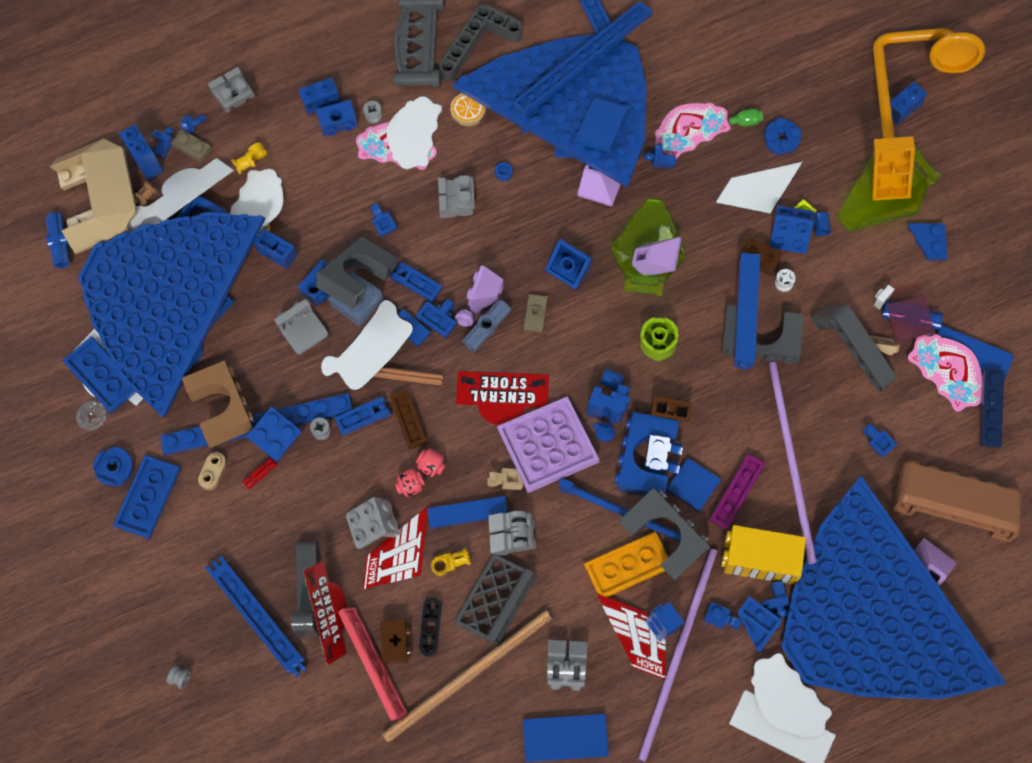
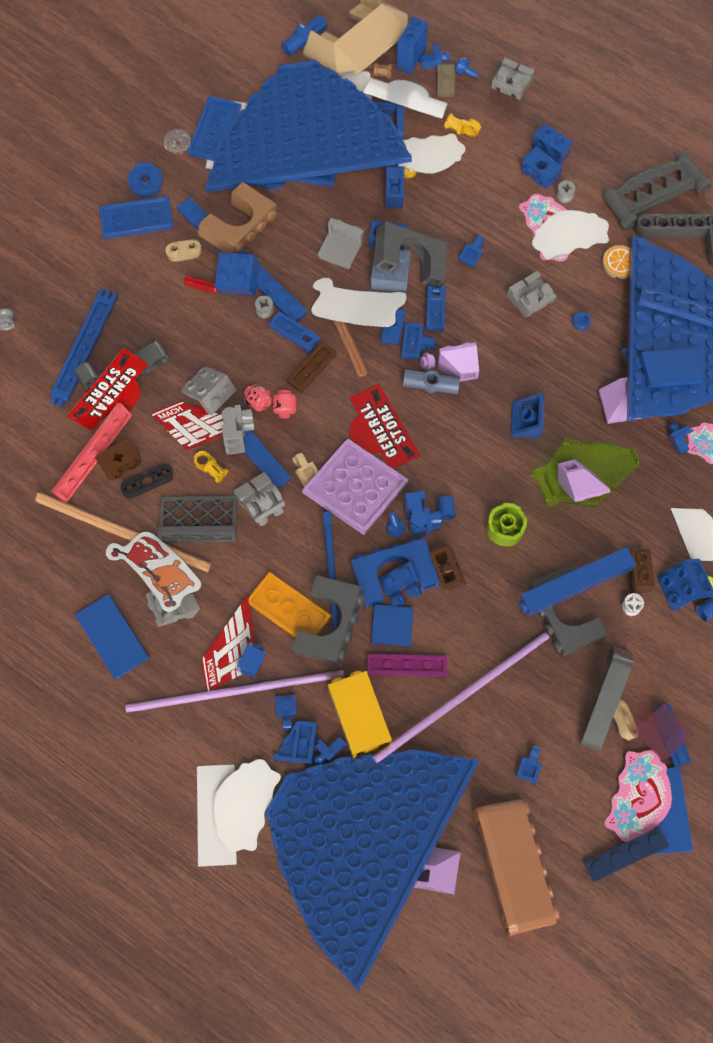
camera: 55 degrees right, 0 degrees up
(431, 519) = (234, 424): none -> light grey hips
(529, 657) = (158, 567): none -> sticker
(535, 313) = (468, 415): dark tan plate -> none
(883, 296) = (674, 699): white plate -> none

